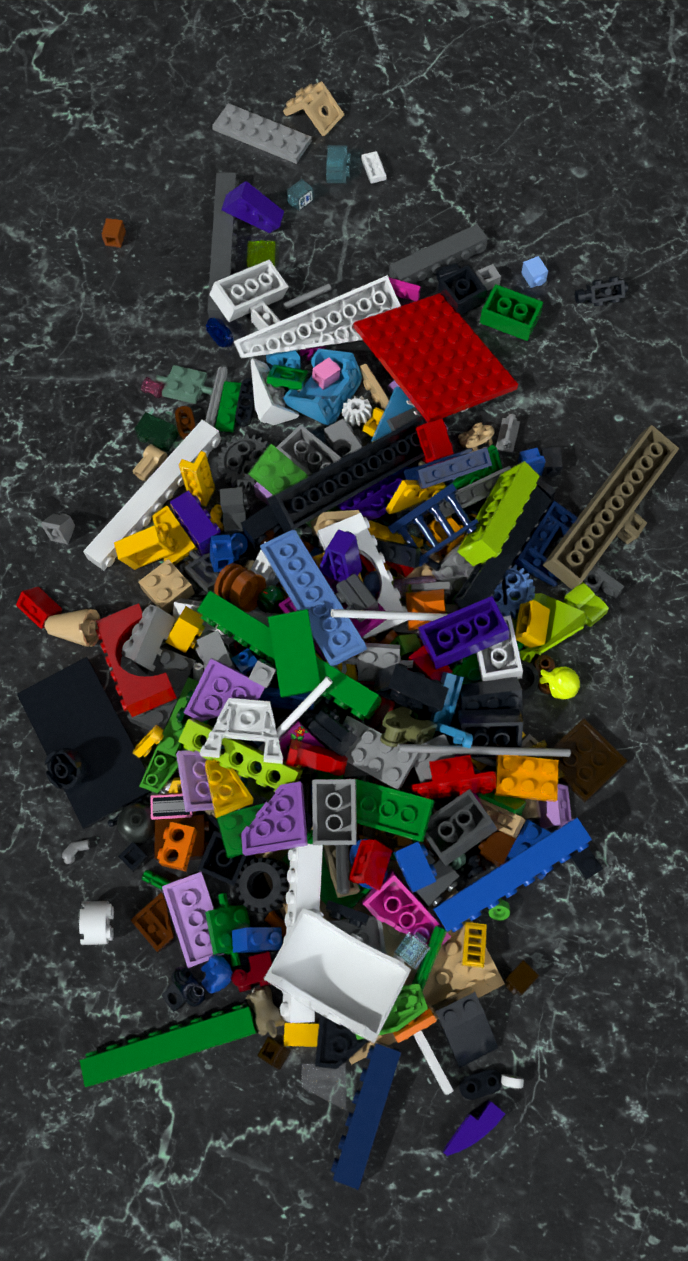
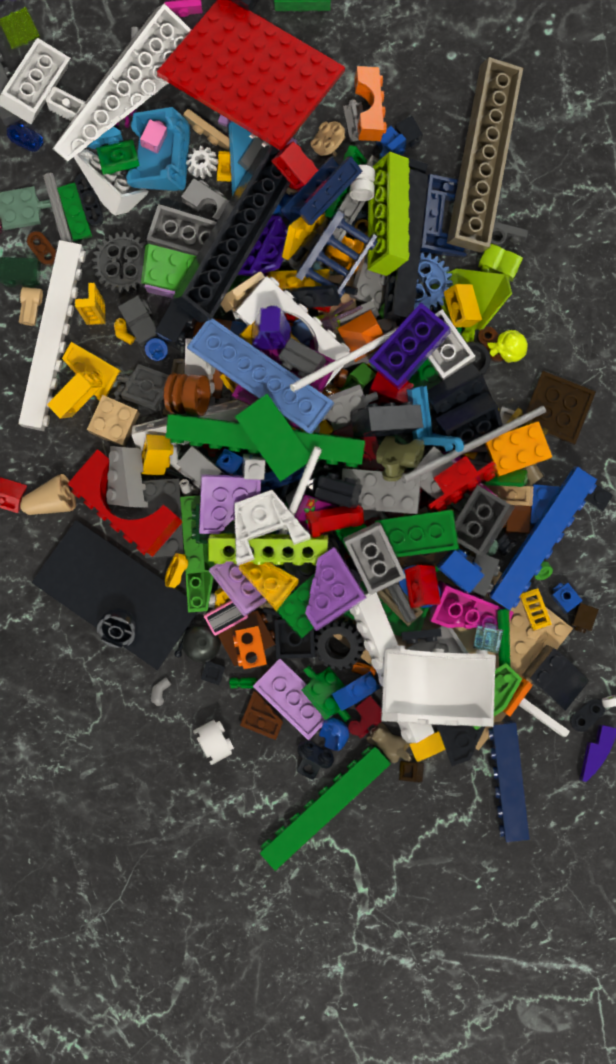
camera: 25 degrees left, 15 degrees up
(195, 521) = (110, 348): dark purple brick -> none
(223, 551) = (151, 366): blue brick -> none
(269, 599) = (219, 391): dark green head -> none
(307, 296) = (90, 57): light grey bar -> none
(326, 1083) = (465, 774): clear wing -> none
(487, 480) = (363, 187): none -> white wheel
(511, 948) = (565, 597): none -> blue brick
(521, 433) = (368, 85): none -> orange arch
(557, 812) = (556, 466): lavender panel -> none
(632, 528) = (512, 168): dark tan brick -> none

